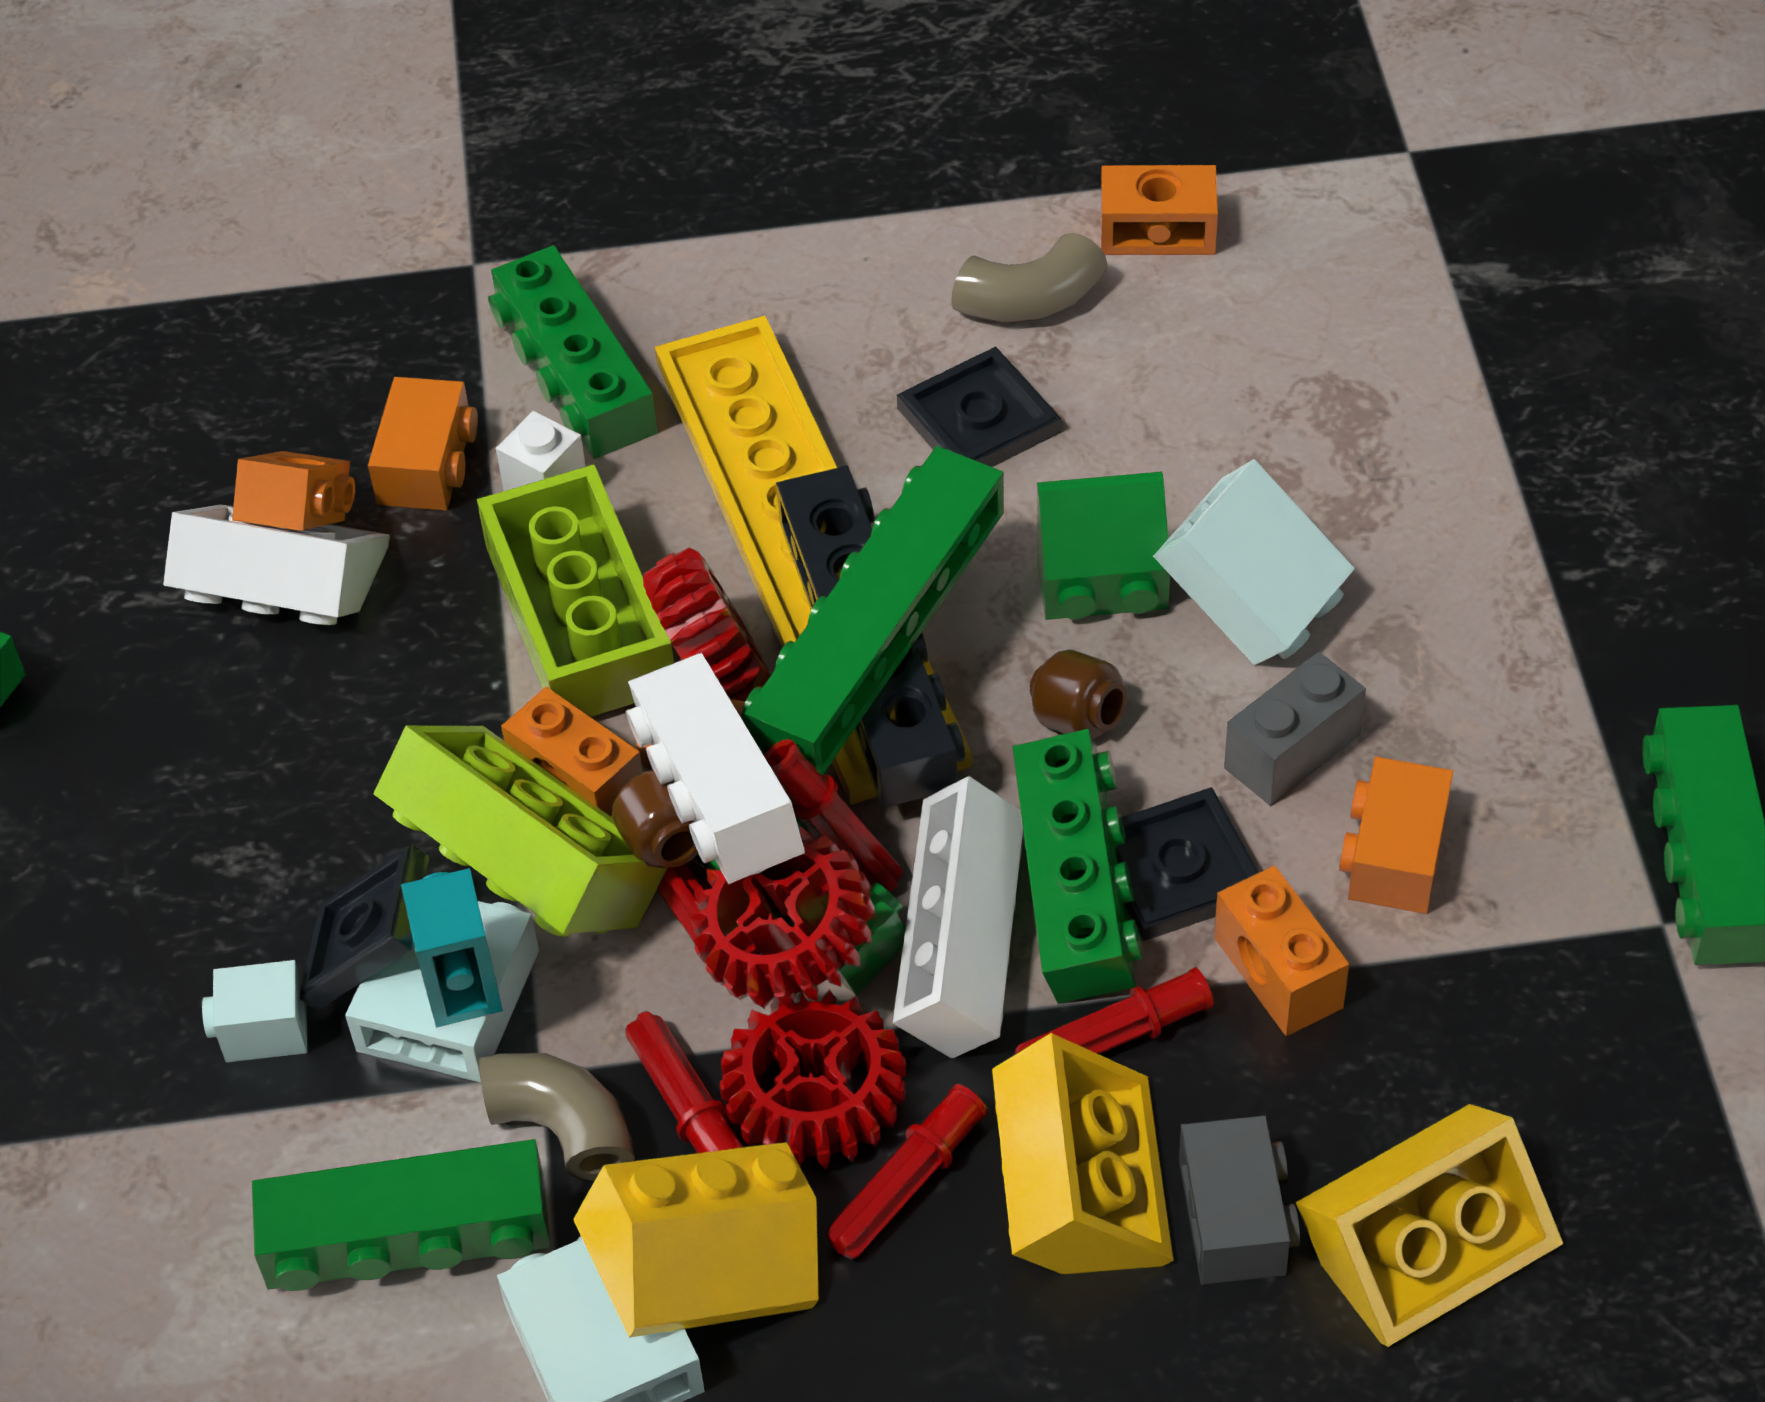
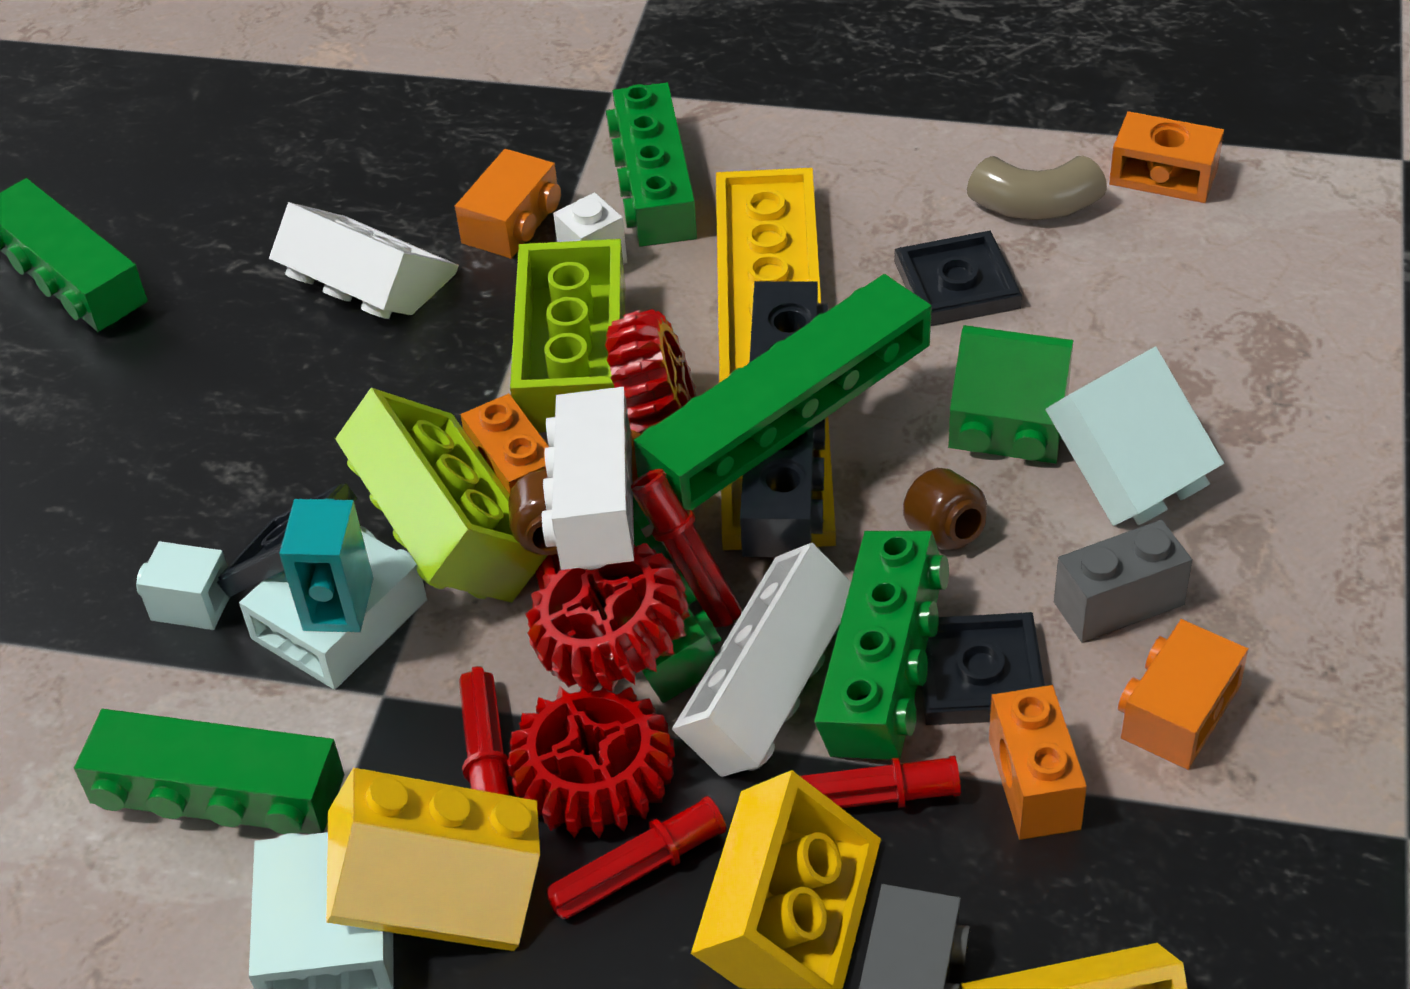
camera: 20 degrees right, 5 degrees down
(292, 490) = (389, 210): orange brick -> none
(560, 1098) = (376, 712): dark tan cylinder -> none

